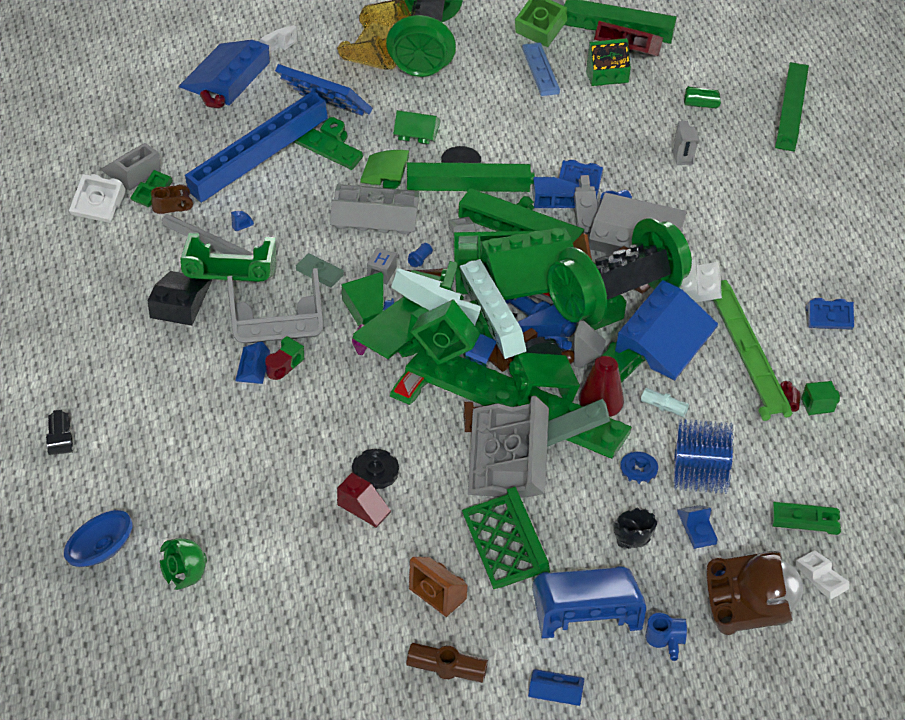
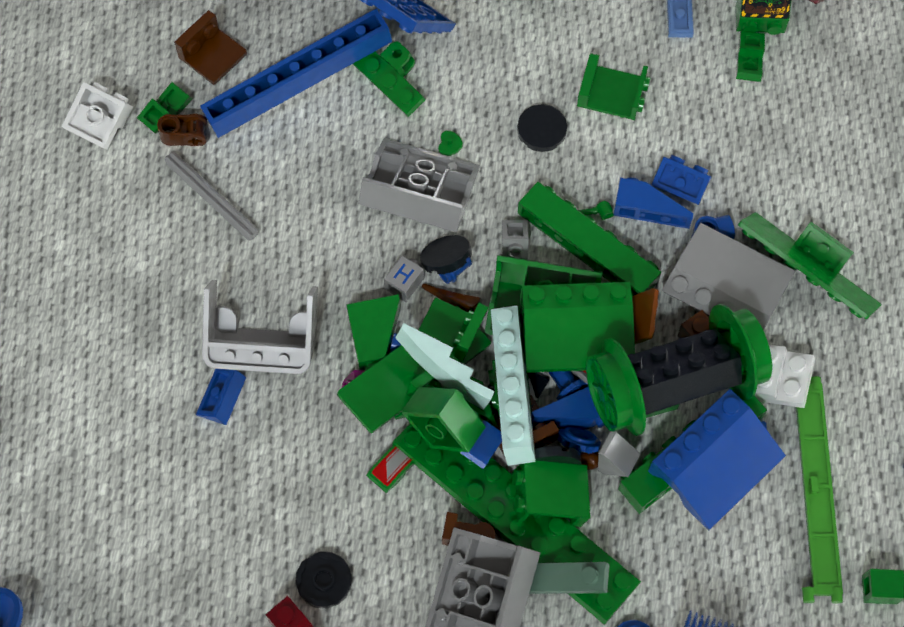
camera: 15 degrees right, 20 degrees up
(134, 166) = (148, 72): light grey slope -> none
(176, 147) = (209, 49): none -> reddish brown bracket
(177, 298) = (158, 278): black slope -> none
(202, 264) = (215, 255): green windscreen -> none
(240, 220) = (257, 176): blue tile -> none
(285, 359) = (256, 400): leg -> none
(327, 273) = (331, 268): sand green plate -> none
(385, 165) = (445, 125): bright green slope -> none
(412, 244) = (446, 254): none -> black tile
(416, 126) = (500, 66): green slope -> none
(463, 176) = (544, 158): green brick -> none
(509, 132) = (612, 90): none -> green panel
(585, 204) = (673, 234): light grey hinge -> none
(605, 384) = (617, 527): dark red cone -> none
(607, 98) = (750, 56): none -> green slope
(664, 402) = (691, 551): light aqua pin -> none
(685, 143) = (825, 154): light grey piece -> none
(702, 97) = (870, 78): green arm -> none
(703, 203) = (817, 257): none -> green bracket
(792, 394) = (852, 572): dark red arm -> none

